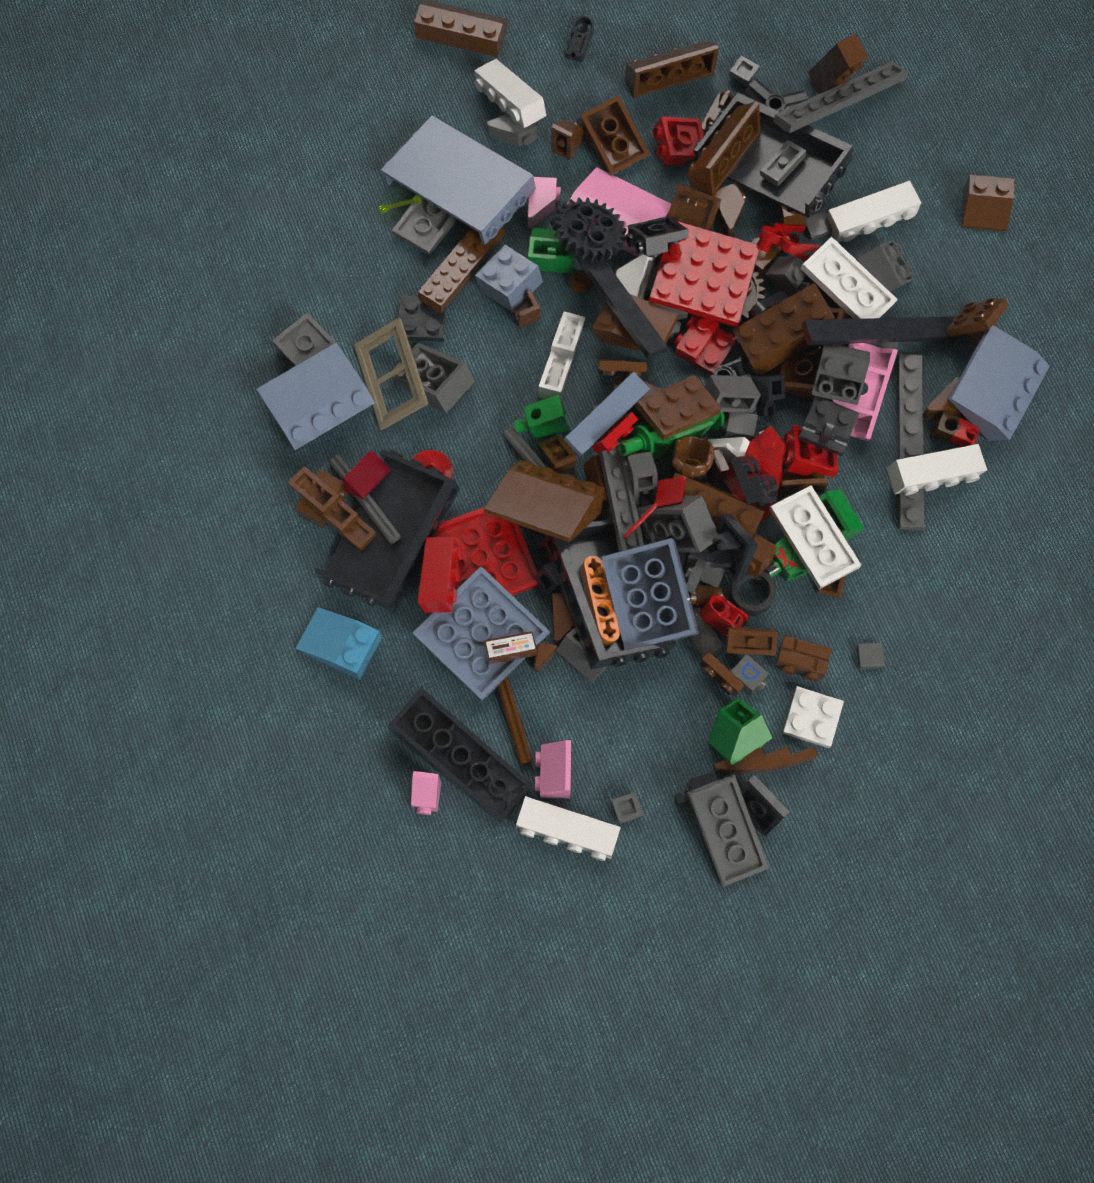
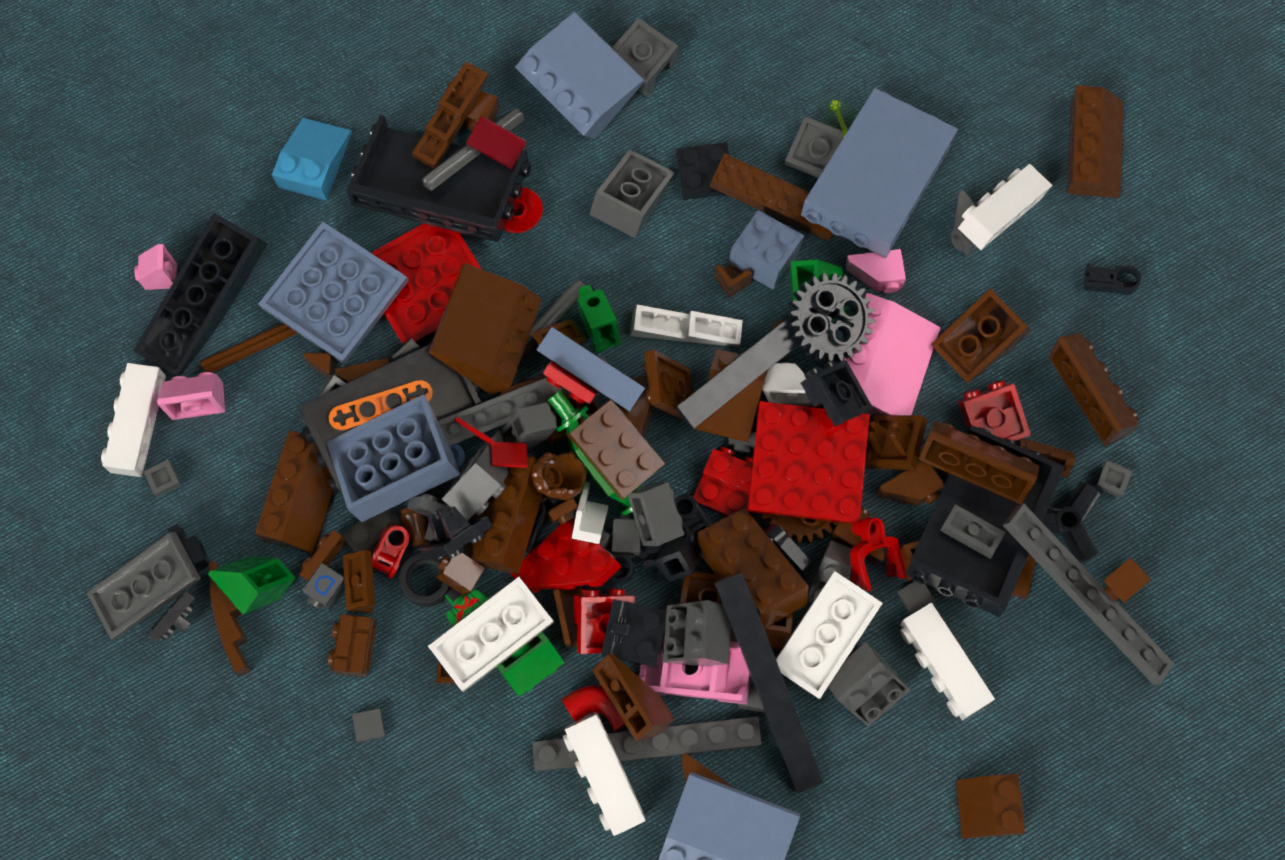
camera: 85 degrees right, 0 degrees up
(406, 368) = (631, 157): dark tan door -> none
(439, 575) = (388, 234): red brick -> none
(510, 647) = (315, 321): slope -> none
(566, 138) = (967, 282): reddish brown slope -> none
(661, 690) = (296, 497): none -> reddish brown slope
(756, 488) = (541, 550): black plate -> none
(813, 717) = (288, 668): white plate -> none
(874, 466) = (592, 700): none -> red cylinder
(882, 435) = (633, 699): none -> reddish brown slope
(954, 430) = (665, 796): leg -> none
(977, 318) = (816, 803): reddish brown plate -> none

